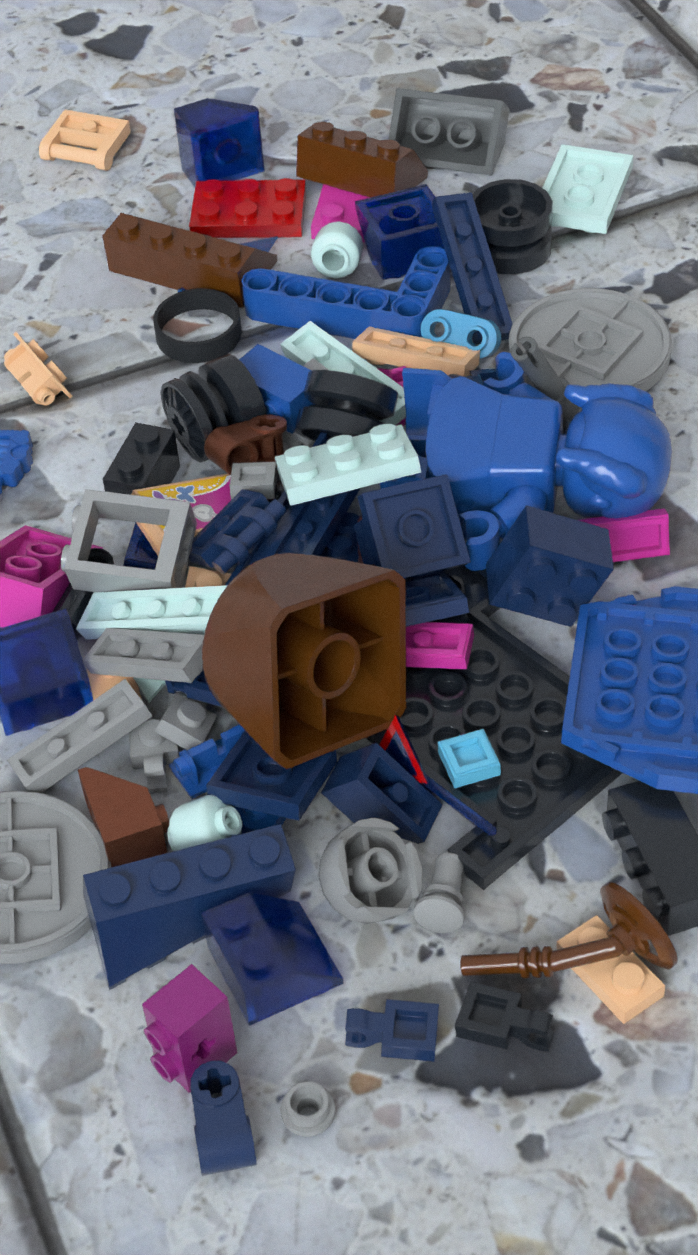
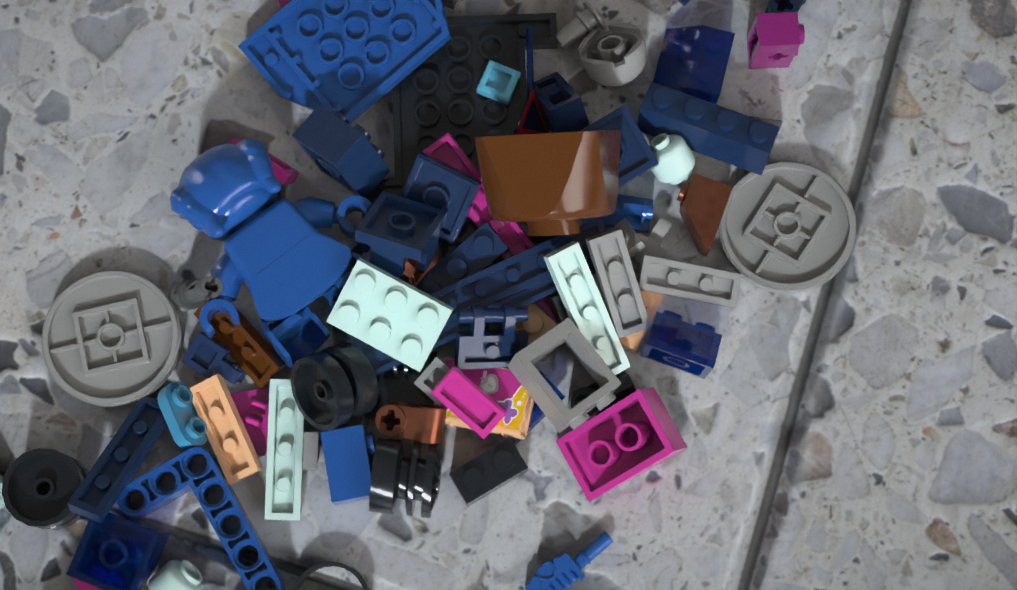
camera: 145 degrees left, 30 degrees up
(205, 474) = (469, 402): none -> dark pink tile

